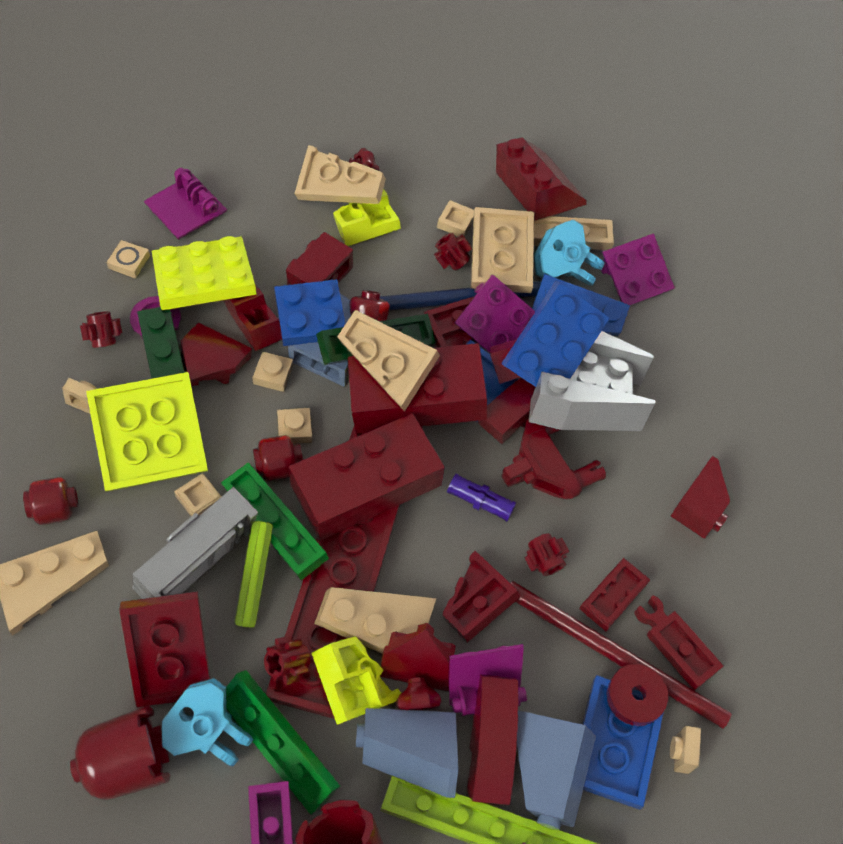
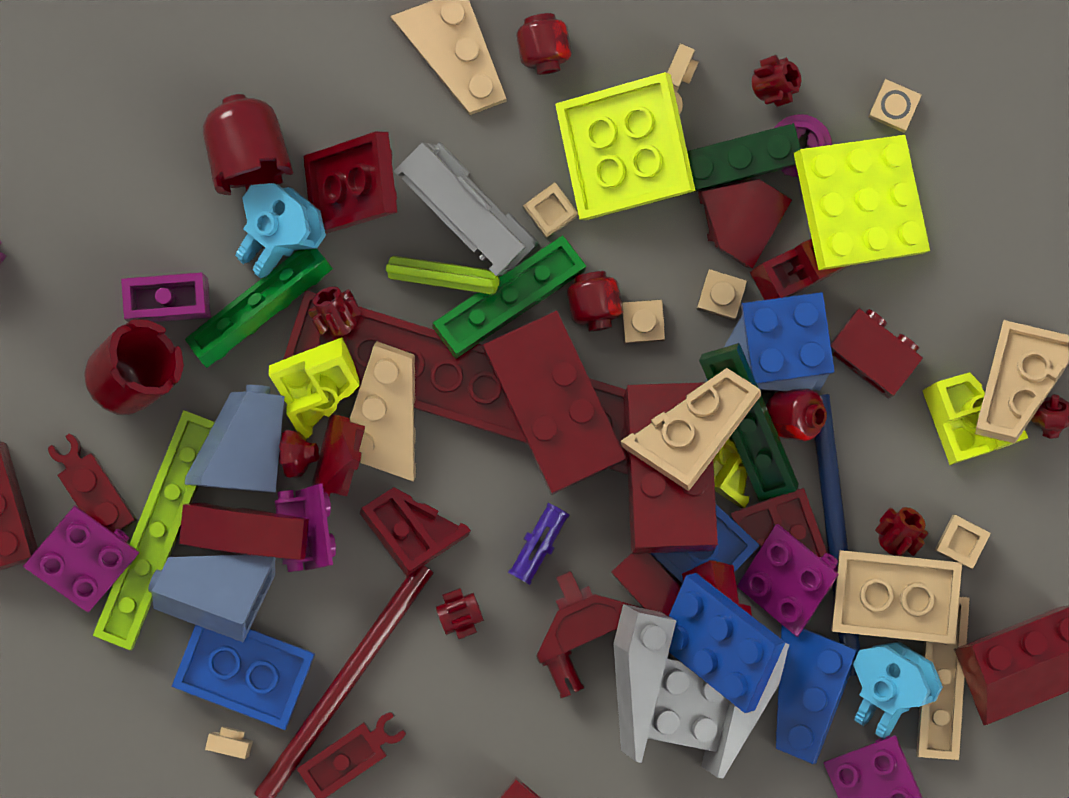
camera: 100 degrees right, 25 degrees up
(185, 204) = (984, 174): magenta hinge -> none
(614, 594) = (412, 690): dark red plate -> none
(628, 708) = (268, 698): dark red piece -> none

